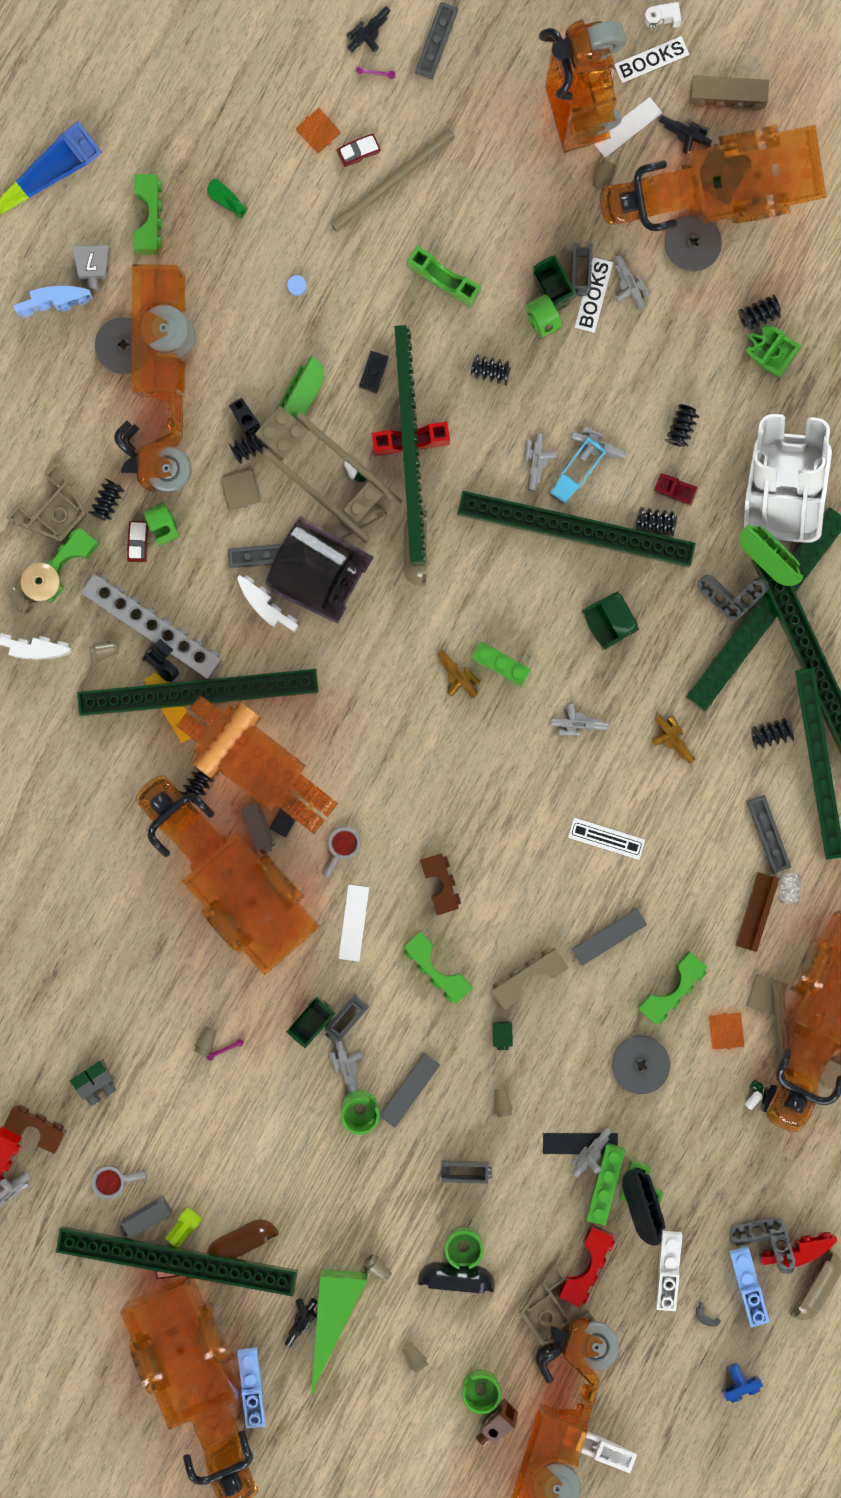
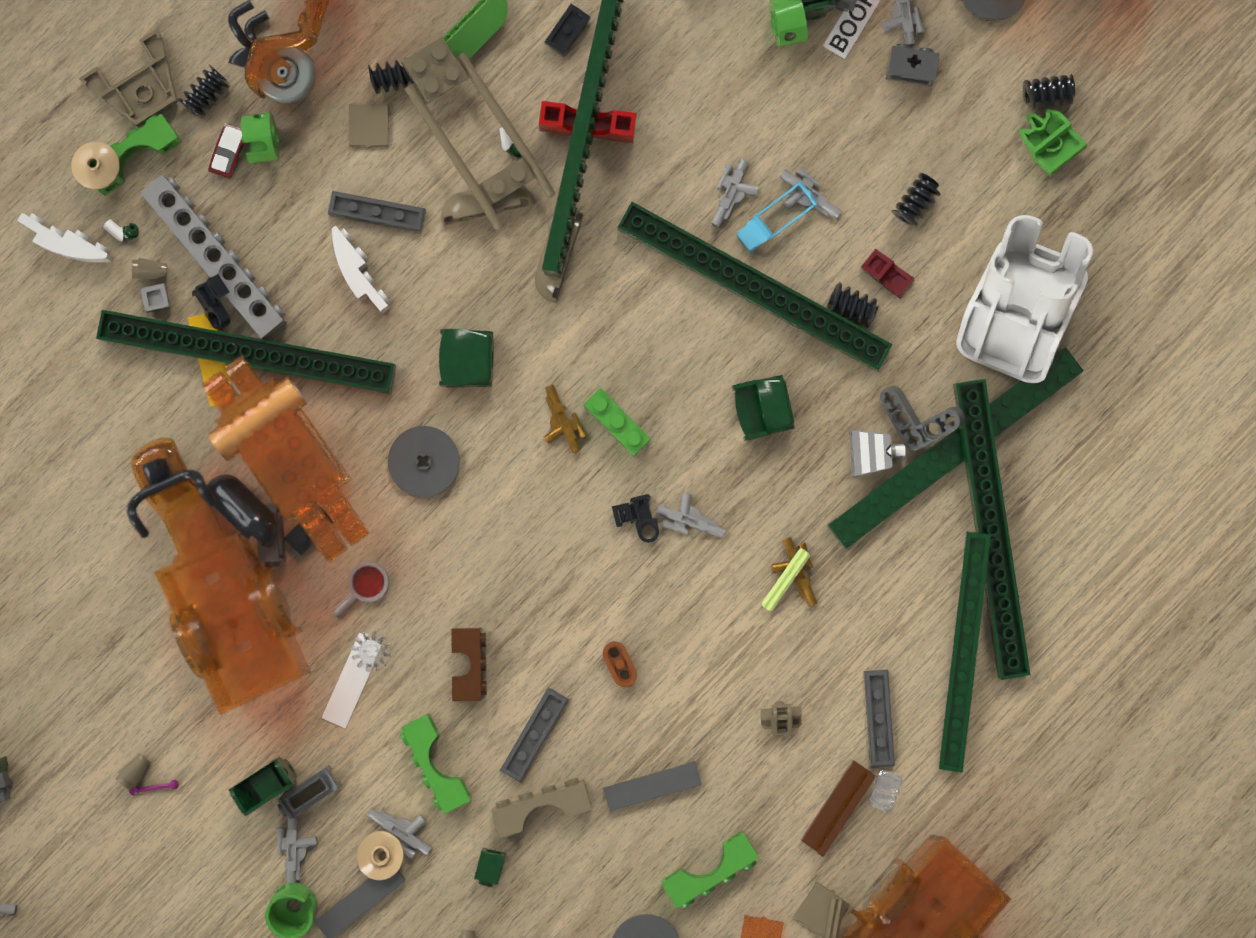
camera: 15 degrees right, 0 degrees up
(21, 600) = (68, 184): dark tan cone -> none
(75, 628) = (122, 233): none -> arm
(115, 671) = (155, 297): none -> light grey plate
(197, 784) = (211, 463): black piece -> none
(234, 814) = (243, 509): none -> black brick
(244, 416) = (397, 38): black leg -> none
(317, 569) = (429, 246): clear smoke windscreen -> none
(345, 743) = (442, 461): none -> dark grey piece
(360, 889) = (370, 642): none -> clear gear
(370, 648) = (466, 358): none -> dark green piece
(407, 1046) = (369, 855): none -> tan dish
(426, 1026) = (403, 830): none -> light grey piece
(490, 369) = (707, 67): black piece -> none
(506, 923) = (534, 734): none -> dark grey tile
(535, 729) = (638, 512): none -> black piece
(556, 850) = (619, 664): none -> dark orange plate
(606, 838) = (683, 667): white sticker -> none
(640, 329) = (900, 69): none -> dark grey brick
(666, 748) = (786, 579): none -> yellowish green axle
(693, 853) = (781, 715): none -> dark tan piece
(704, 630) = (872, 452): none -> torso
(770, 555) = (977, 384): bright green brick -> none
(771, 733) = (918, 598): black piece -> none

